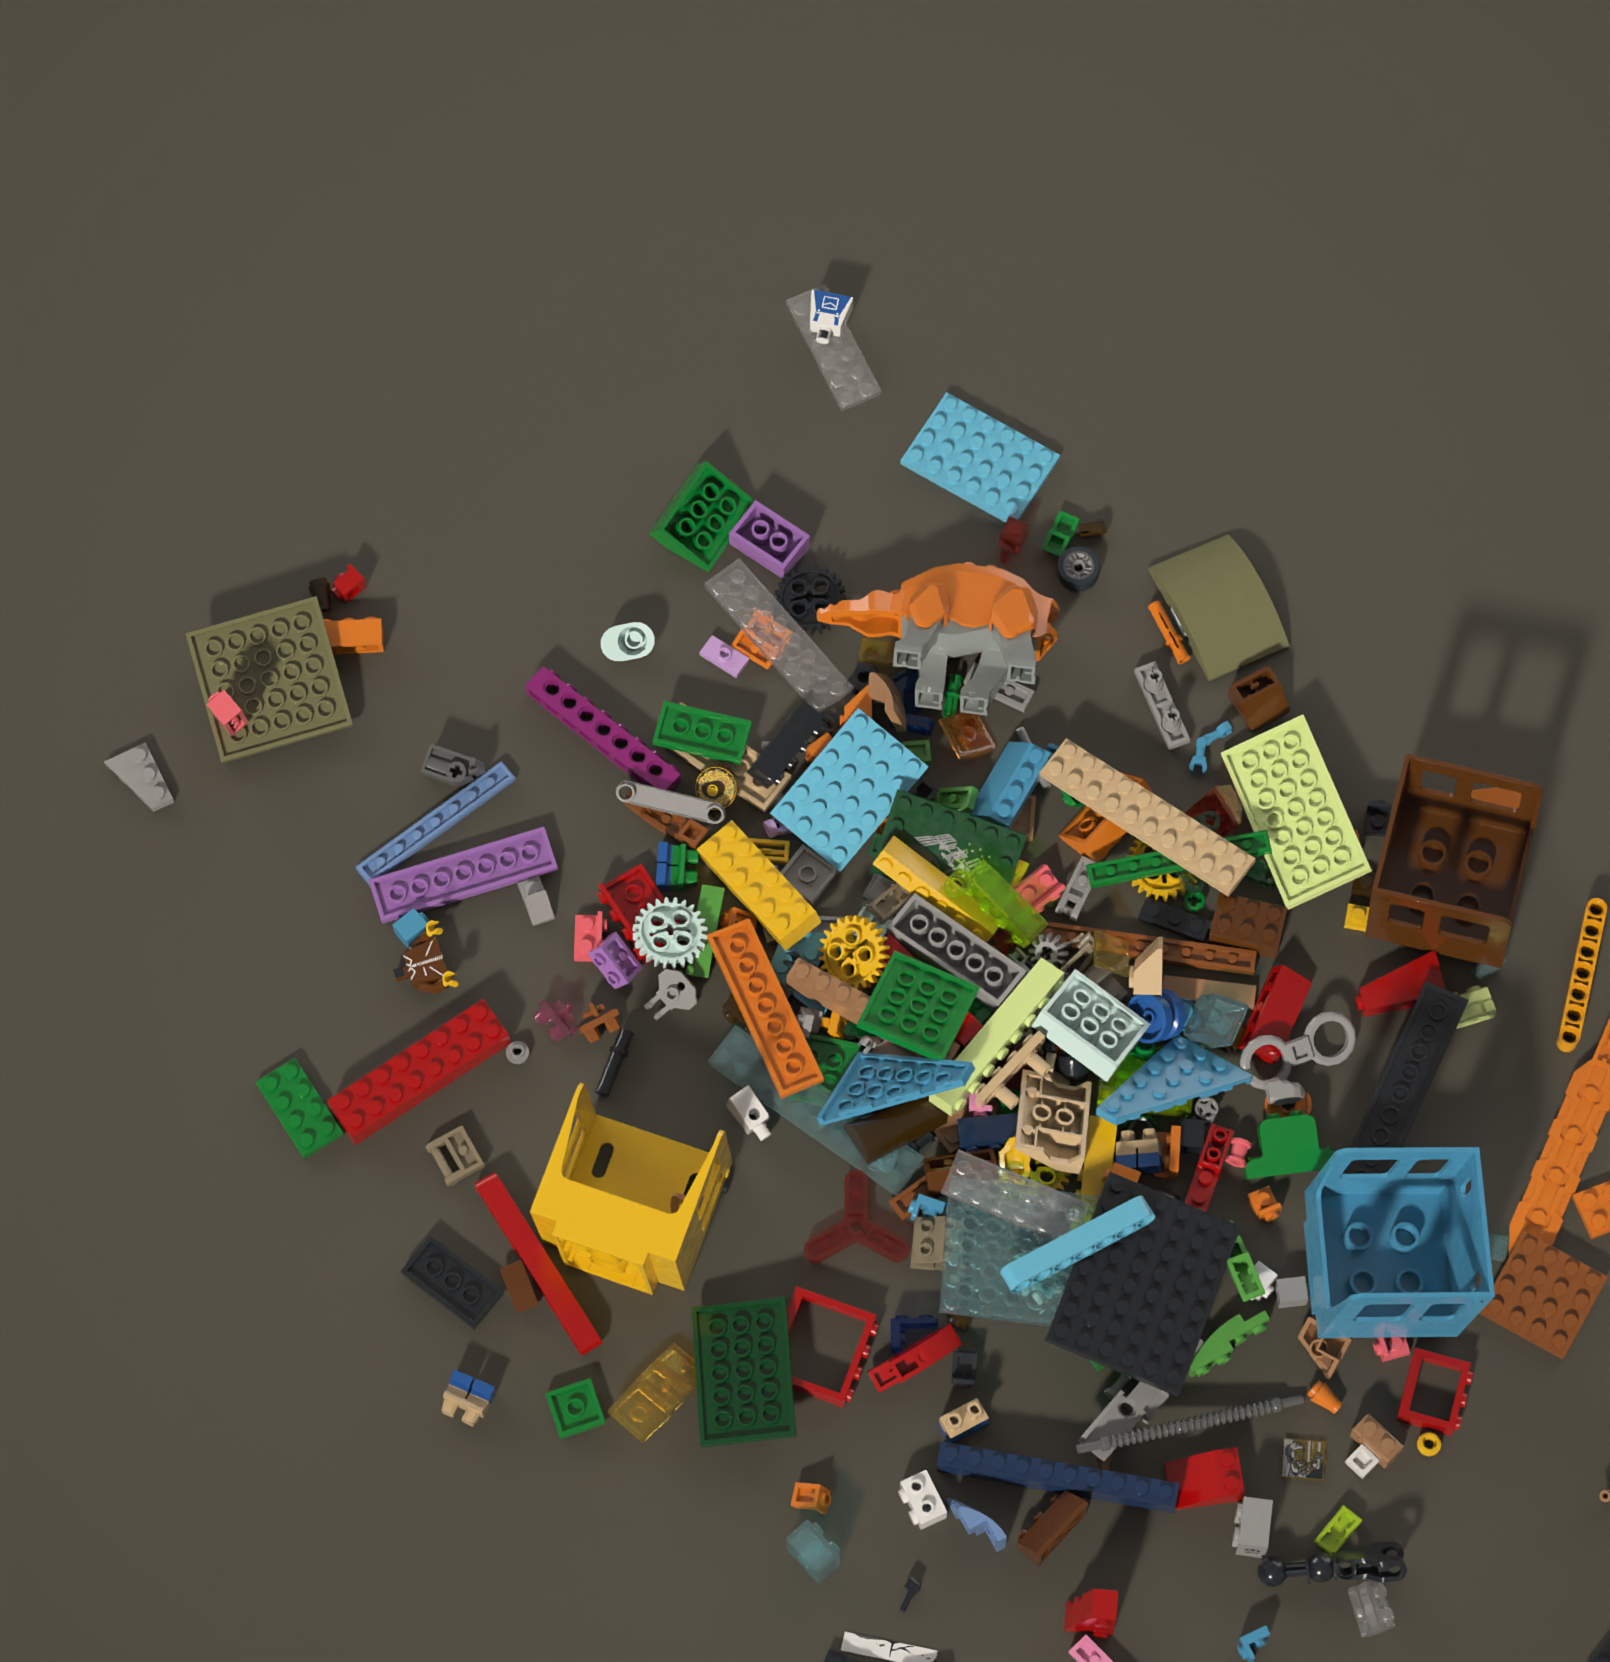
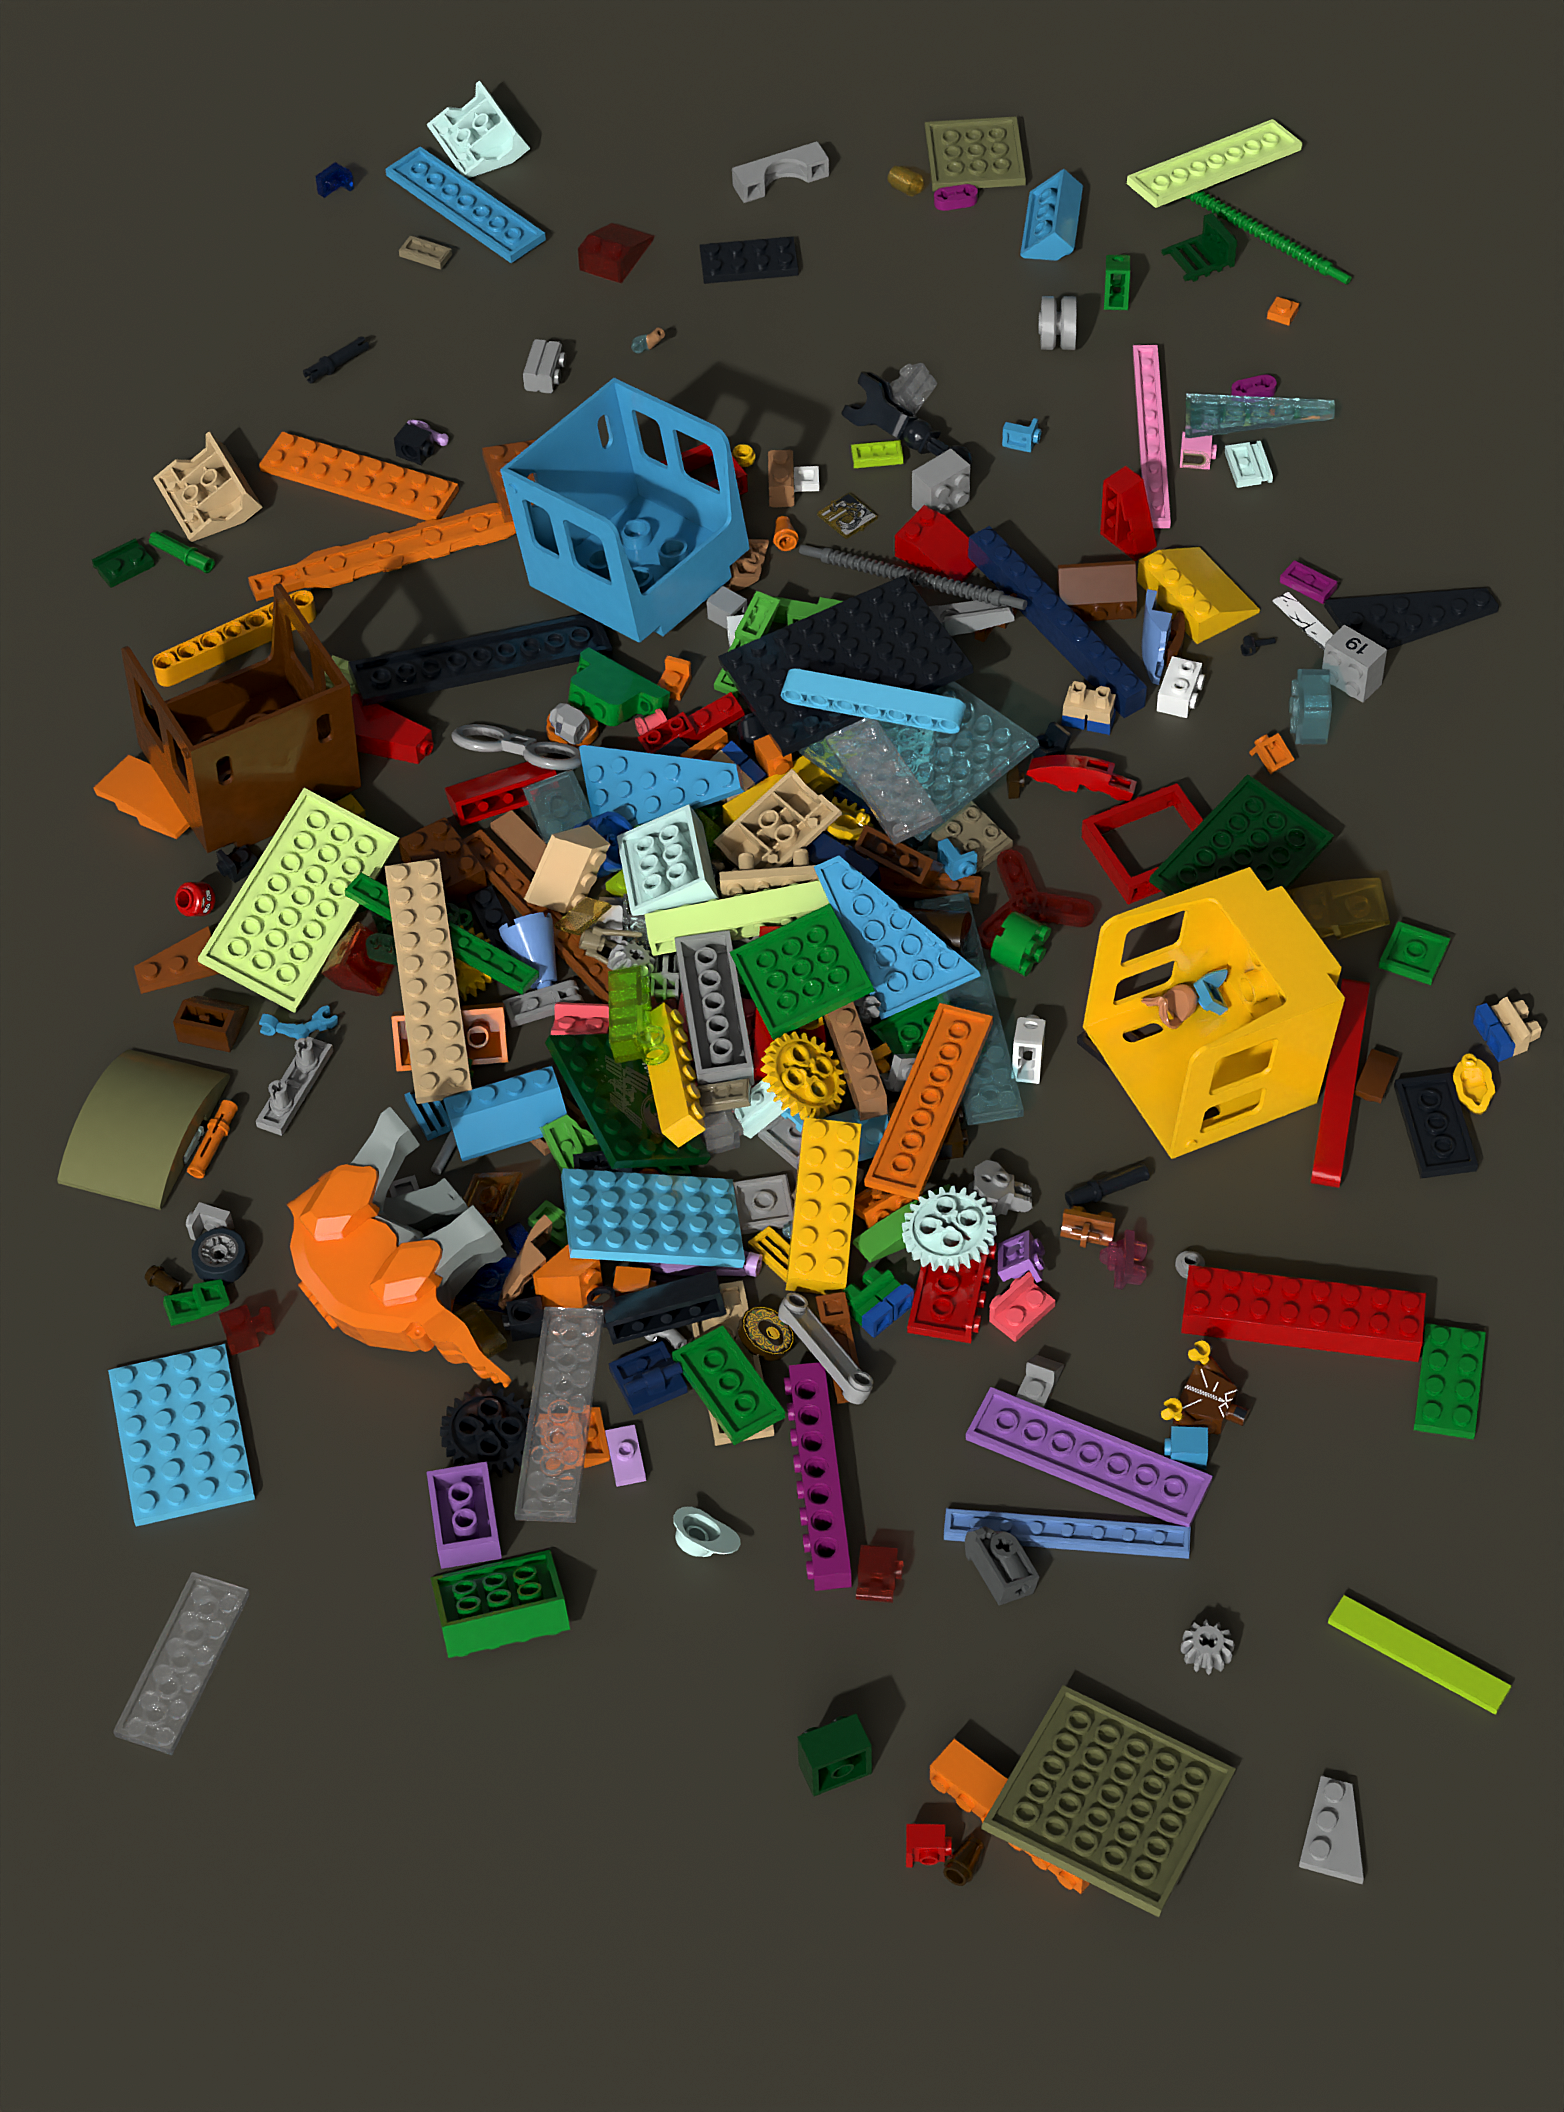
camera: 135 degrees left, 15 degrees down
(177, 917) = (1419, 1654): none -> lime tile
(227, 712) = (1197, 1766): coral brick -> none
(300, 823) = (1207, 1647): none -> light grey gear
(436, 581) = (834, 1754): none -> dark green brick
(452, 1332) = (1474, 1083): none -> yellow arm
(462, 1152) = (1324, 1223): dark tan plate -> none
(515, 707) = (878, 1571): none -> clear red brick
(760, 706) = (648, 1377): none -> dark blue plate
(794, 955) = (861, 1118): black hand -> none
(818, 1616) = (1354, 663): none -> light grey brick
(825, 1181) = (1020, 943): none -> green brick
(829, 314) = (152, 1682): torso -> none
(905, 1322) = (1066, 810): clear blue bracket -> none
(967, 1546) = (1176, 638): none -> reddish brown slope
(992, 1604) = (1197, 587): none -> yellow slope
(1107, 584) = (208, 1218): none -> light grey bracket
(1121, 910) = (533, 943): none -> medium blue cone
(1330, 723) = (175, 964): none -> dark orange wing
(1366, 765) = (195, 899): none -> red head

